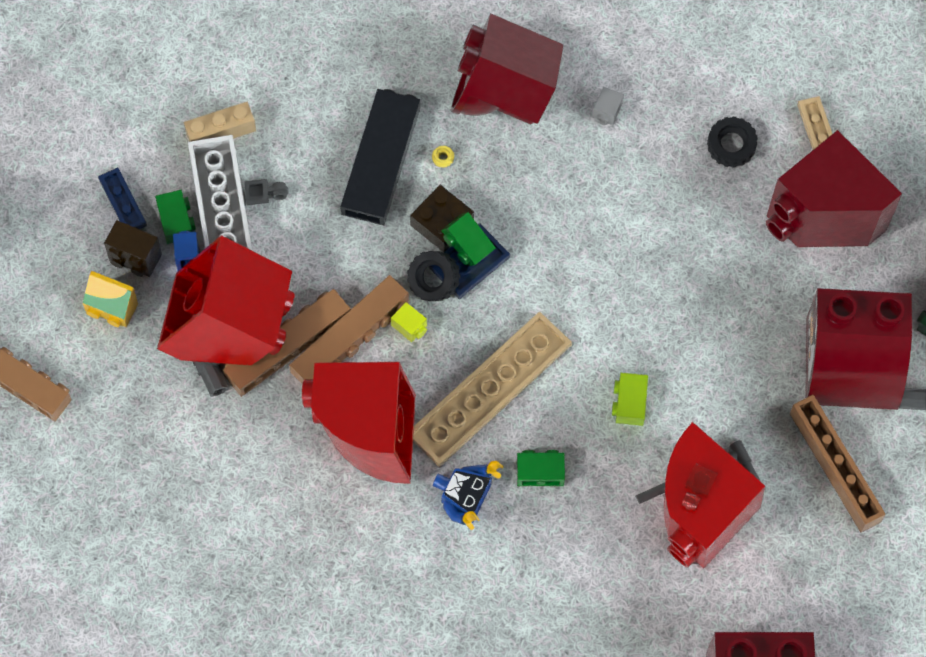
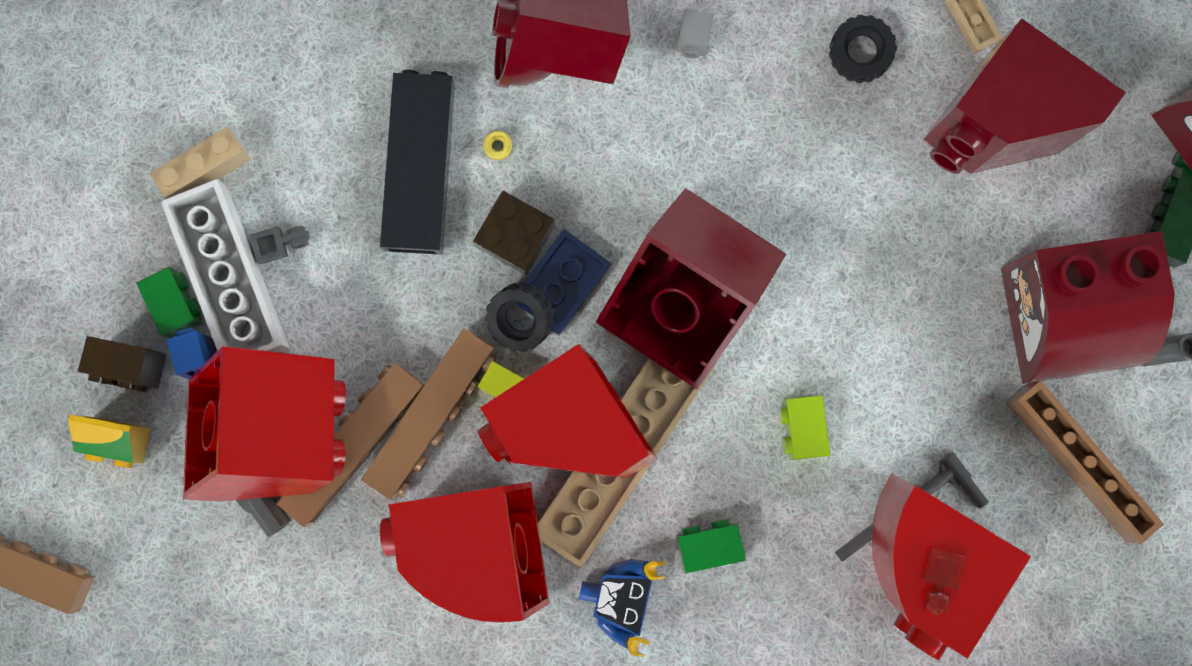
camera: 10 degrees left, 15 degrees up
(121, 199) = (98, 294): dark blue plate -> none
(453, 347) = (566, 421): none -> red slope
(467, 239) = (554, 261): green brick -> none
(564, 276) = (690, 287): none -> dark red brick

